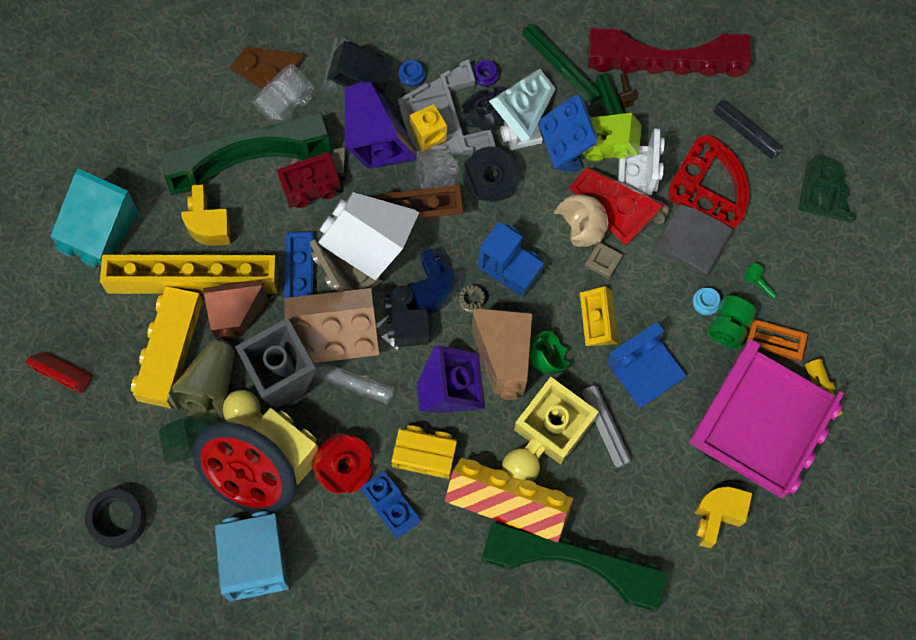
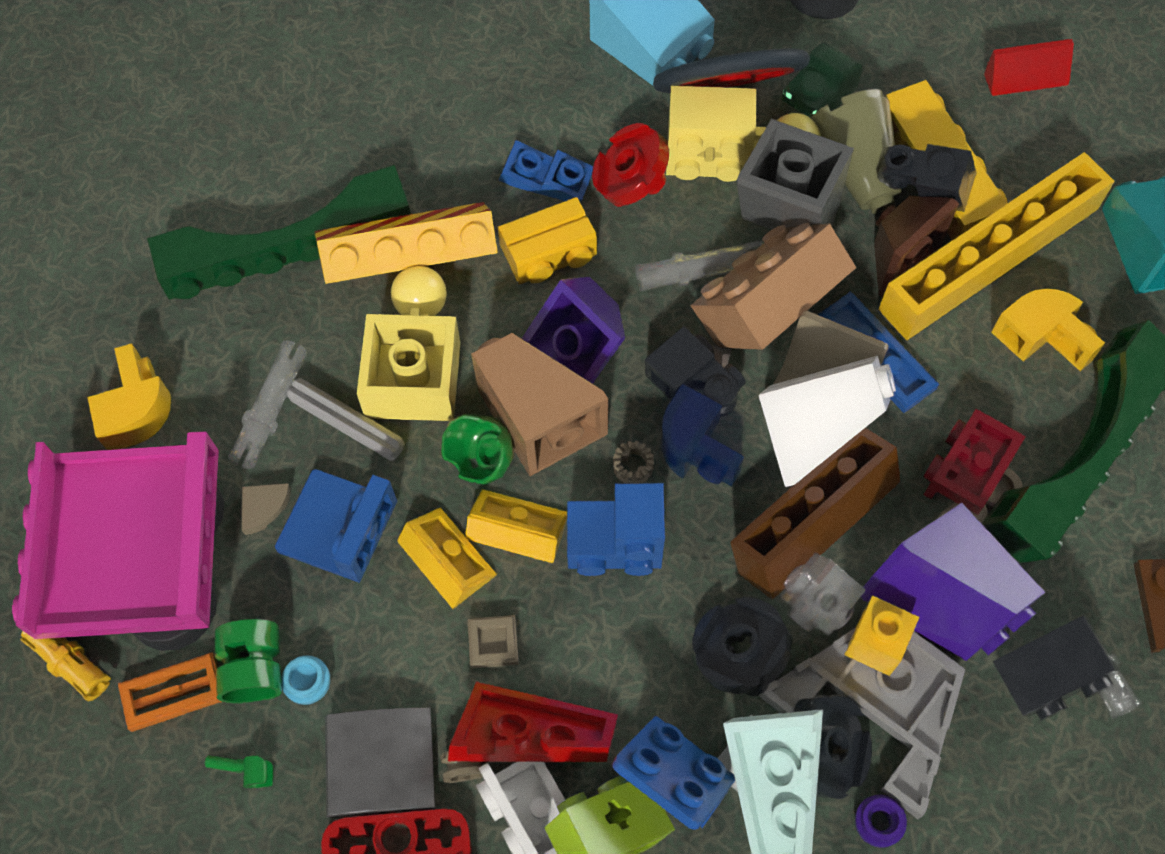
camera: 150 degrees right, 5 degrees down
(194, 317) = (934, 172): none -> black brick
(283, 95) = (1121, 556): clear brick -> none
(411, 73) = (984, 737): blue plate -> none
(552, 309) = (516, 525): none -> yellow slope
(586, 218) = (546, 666): tan piece -> none
(644, 461) = (260, 420): none -> clear pin
(678, 406) = (263, 505): none -> dark tan tile

